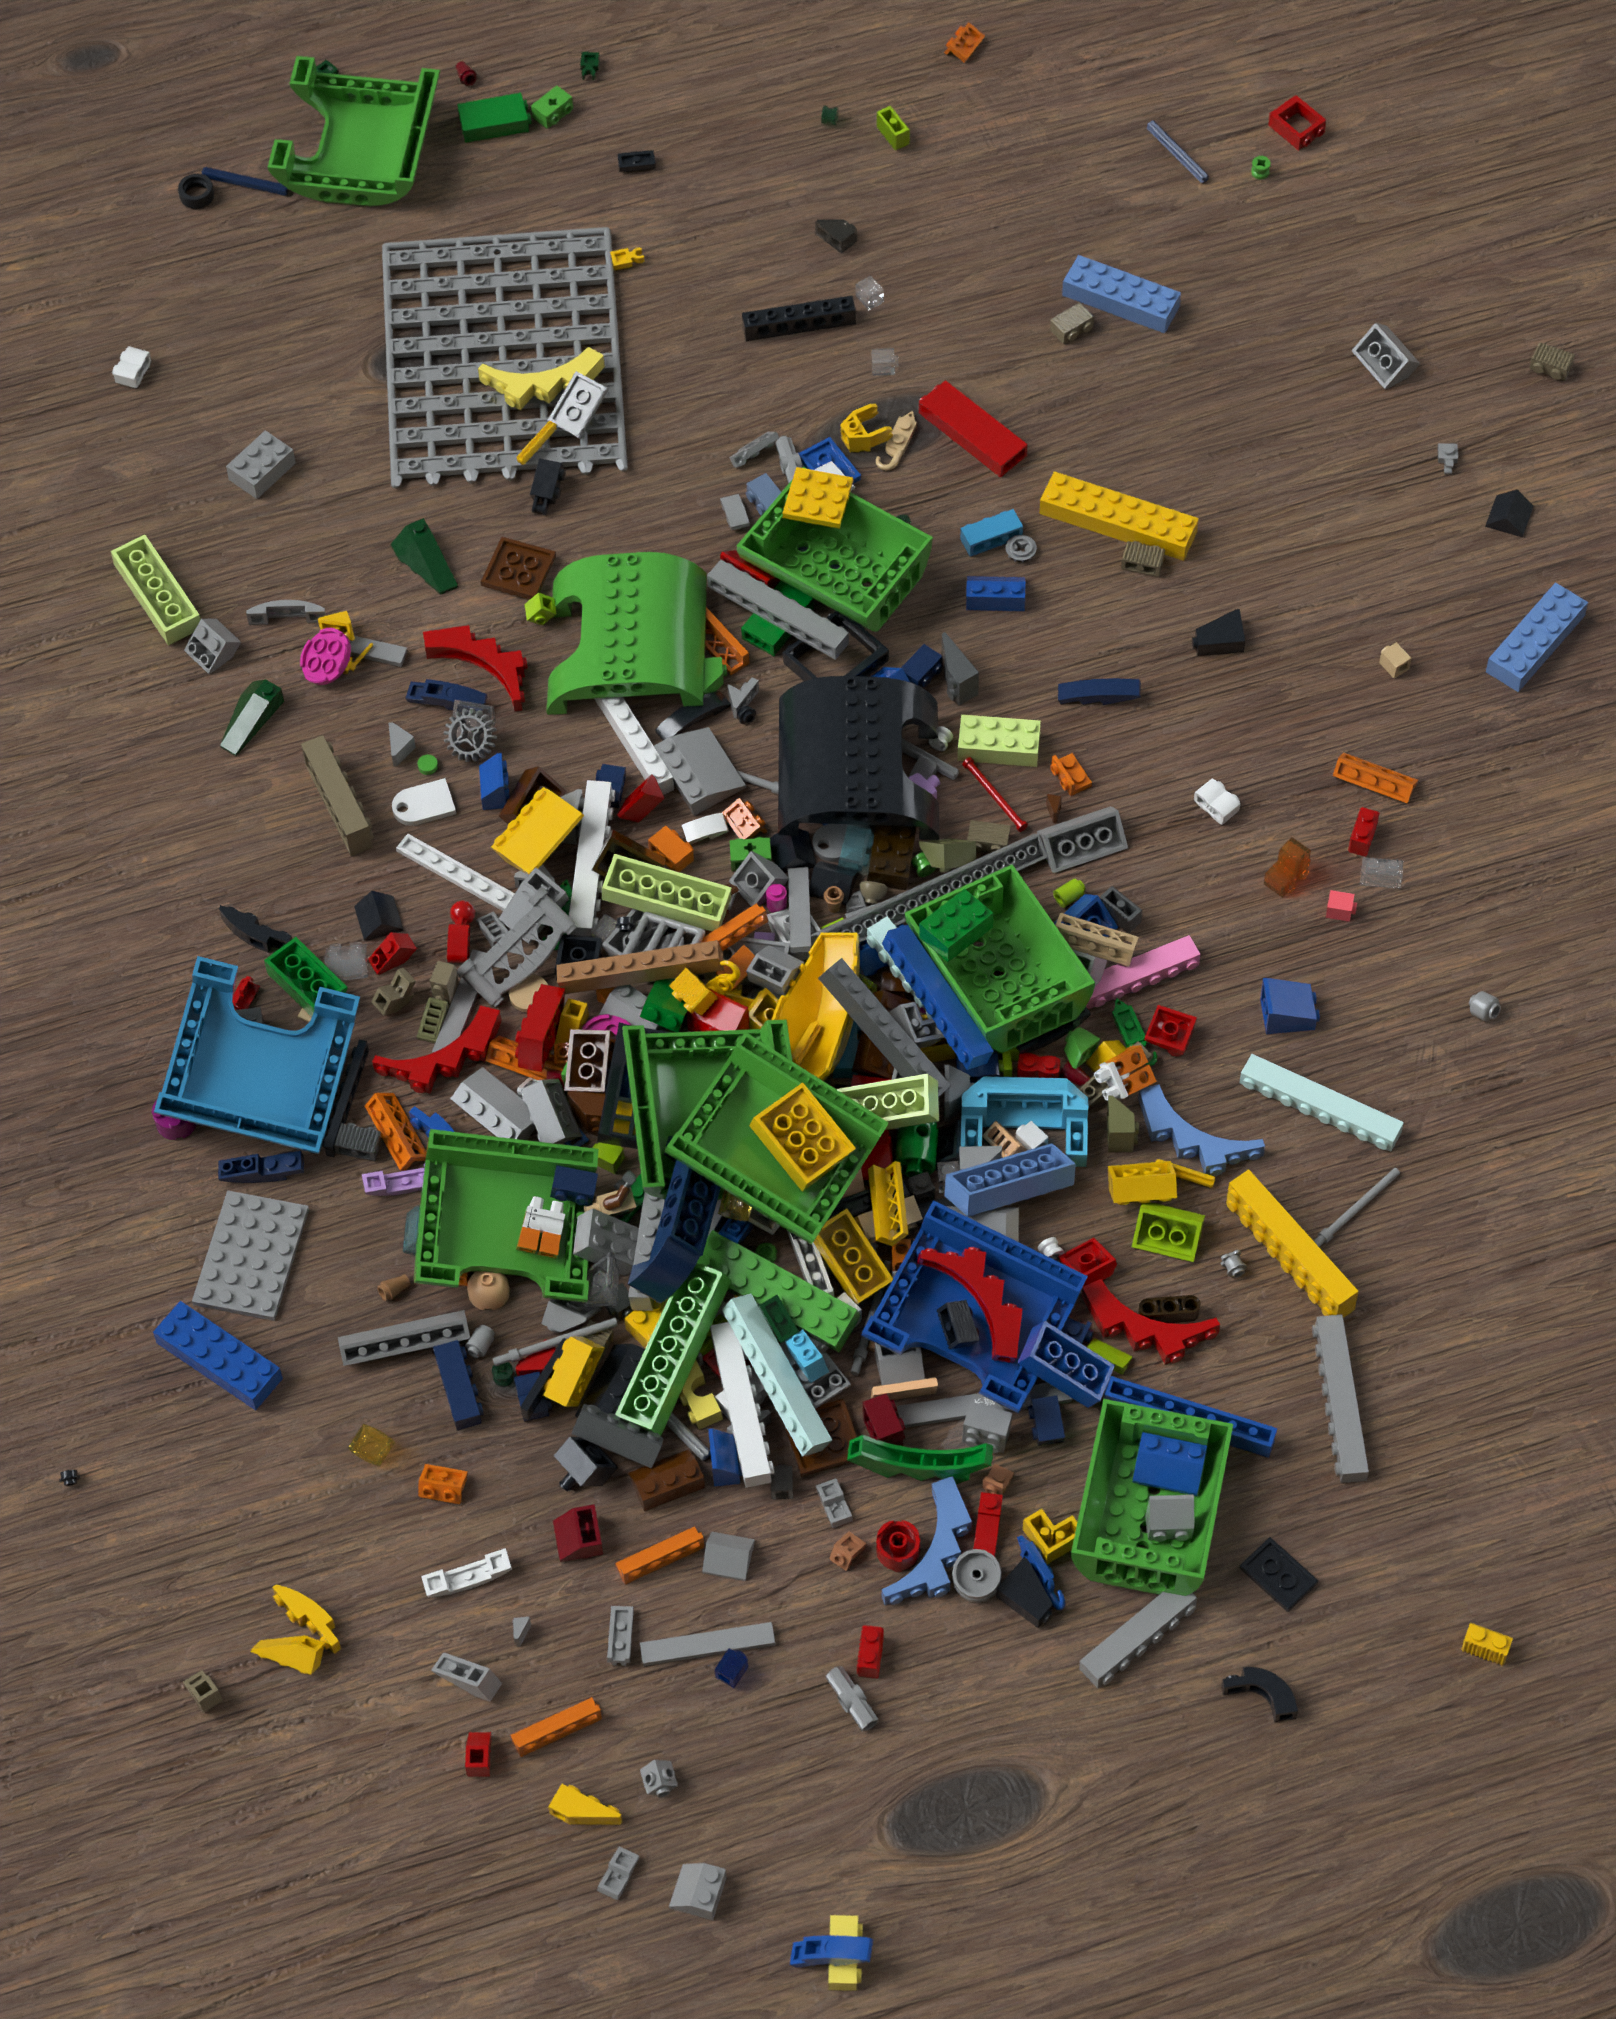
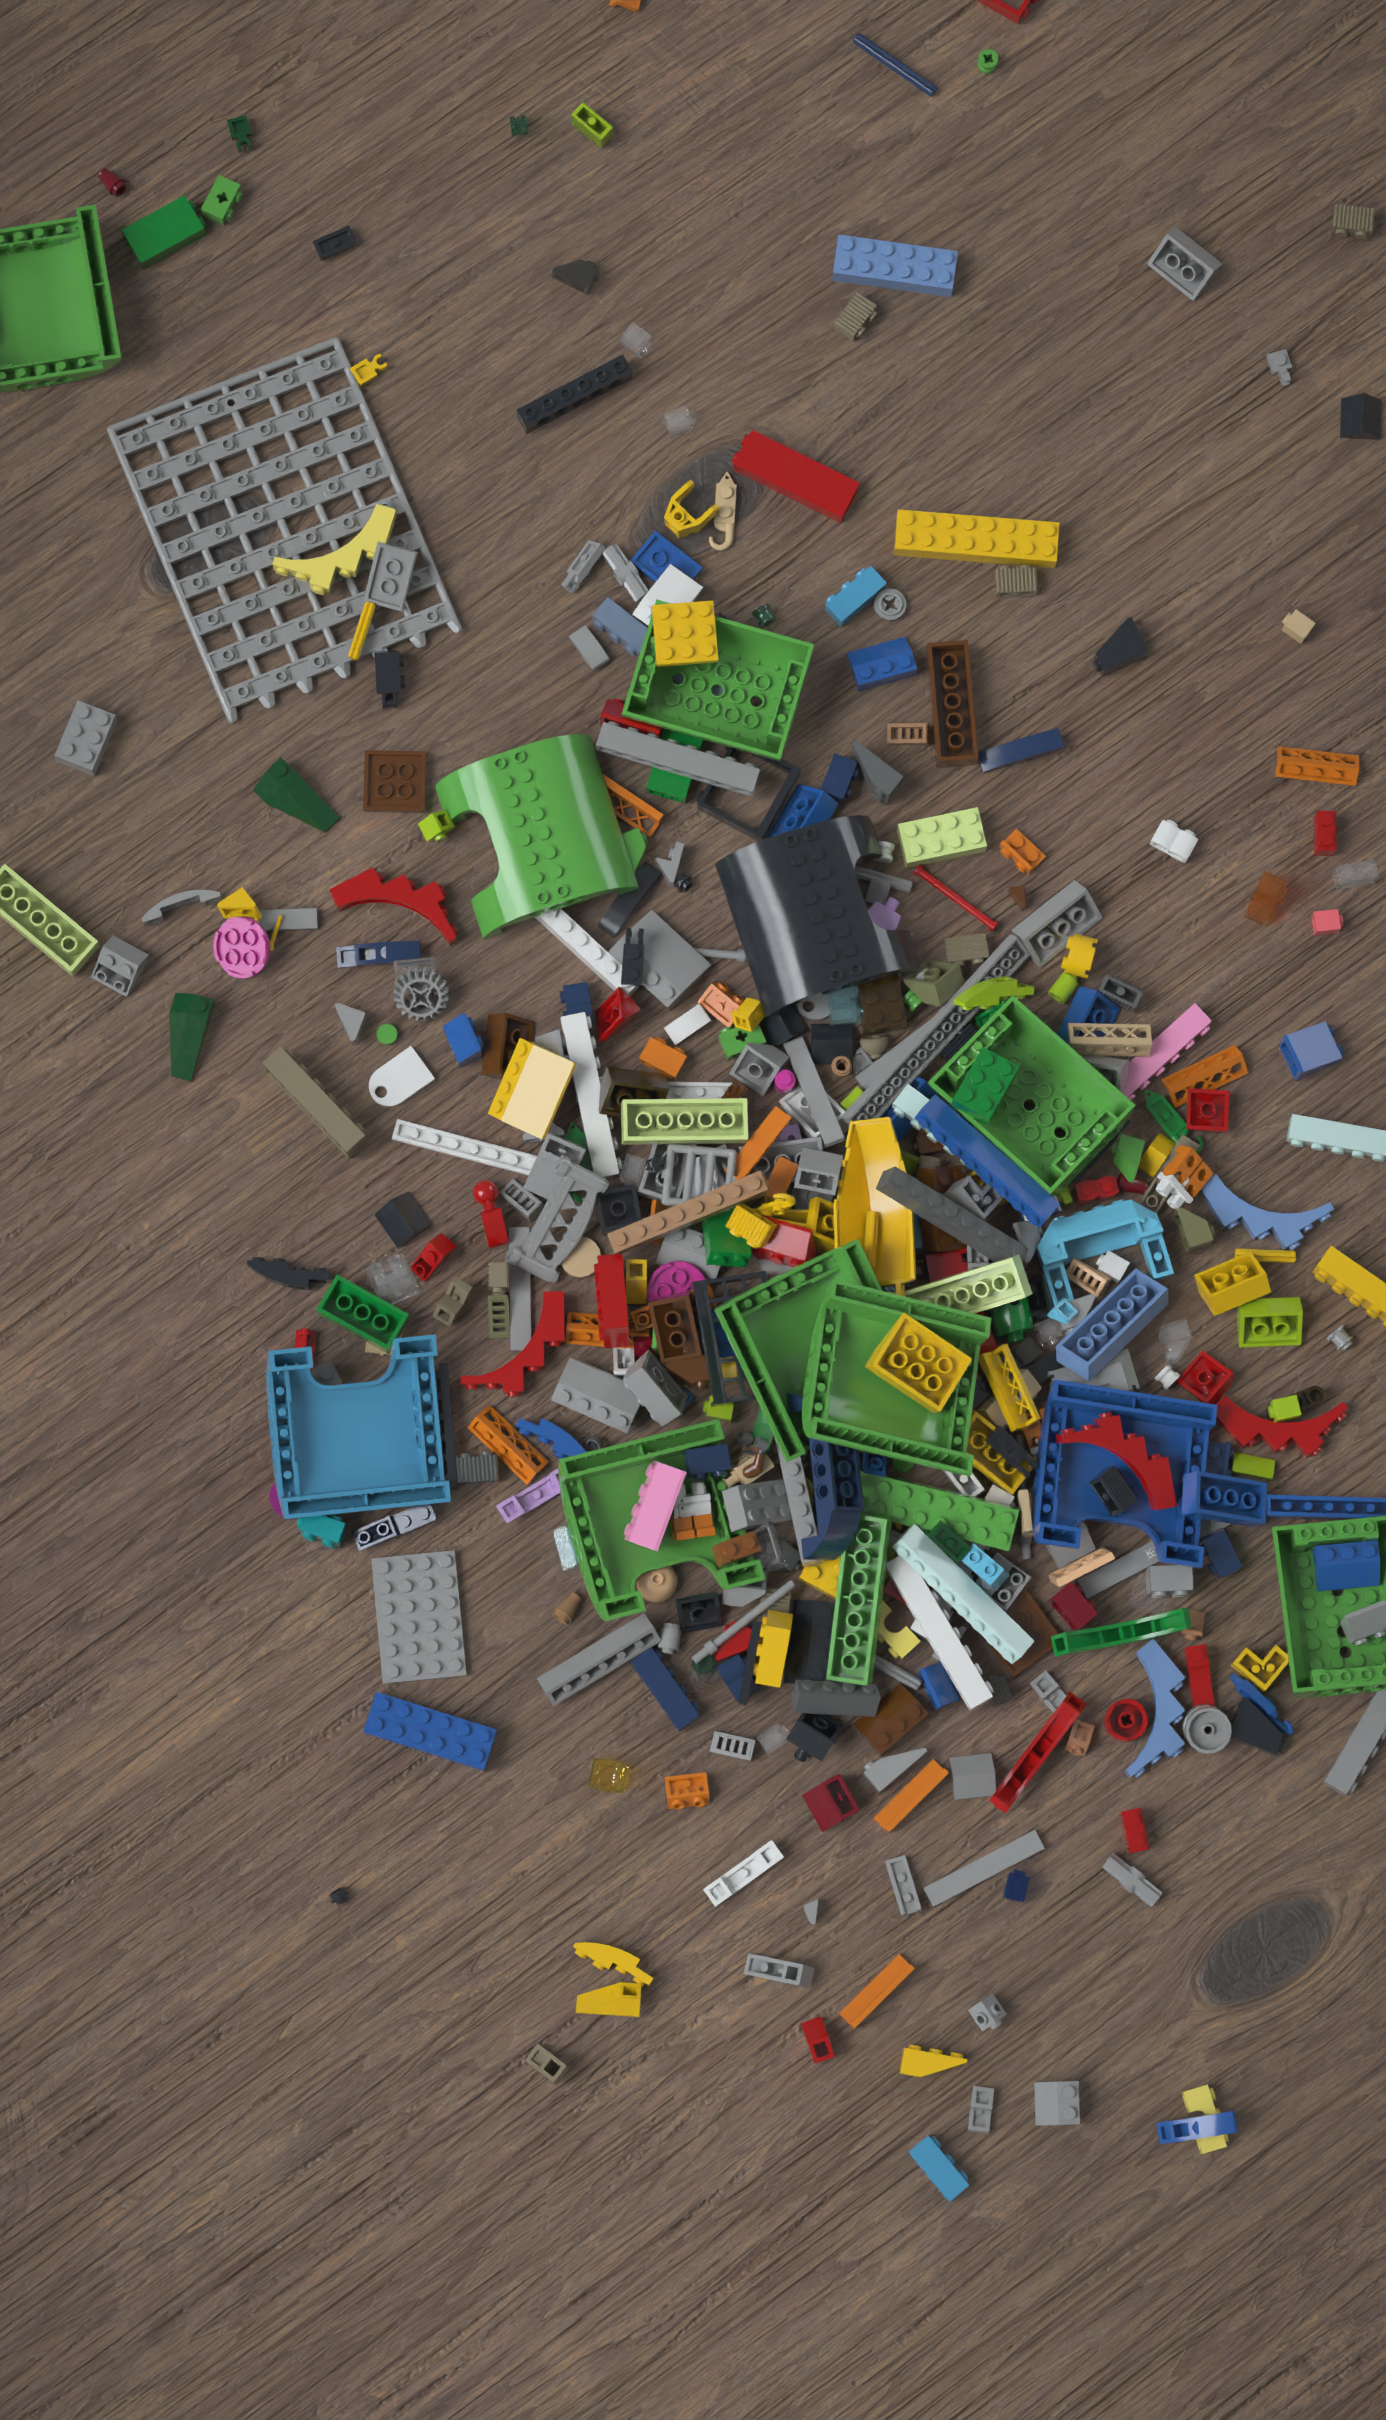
camera: 25 degrees left, 20 degrees up
(191, 1147) = (326, 1529): none -> teal brick
(507, 1206) = (654, 1505): none -> bright pink slope
(513, 1469) = (747, 1757): none -> light grey slope
(517, 1324) = (699, 1612): none -> black slope
(543, 1460) = (773, 1738): none -> clear brick
(554, 1914) = (939, 2167): none -> dark azure brick
(571, 1266) = (736, 1549): none -> dark orange brick
(648, 1521) = (887, 1769): none -> light grey slope
(673, 753) = (633, 959): none -> black hinge
(762, 828) = (748, 1015): none -> yellow brick
(795, 1550) = (1037, 1752): none -> red arch
(865, 1313) = (1025, 1509): none -> tan slope
(869, 1257) = (1010, 1450): none -> black hinge
(965, 1151) = (1063, 1312): none -> medium azure slope
(987, 867) = (990, 991): none -> lime slope
(1012, 656) = (908, 741): none -> medium nougat slope
(1047, 636) = (952, 703): none -> reddish brown brick
(1072, 1220) = (1176, 1339): none -> clear slope
(1093, 866) = (1079, 956): none -> yellow brick
(1154, 1303) = (1284, 1409): none -> lime brick
(1181, 996) = (1206, 1068): none -> orange fence

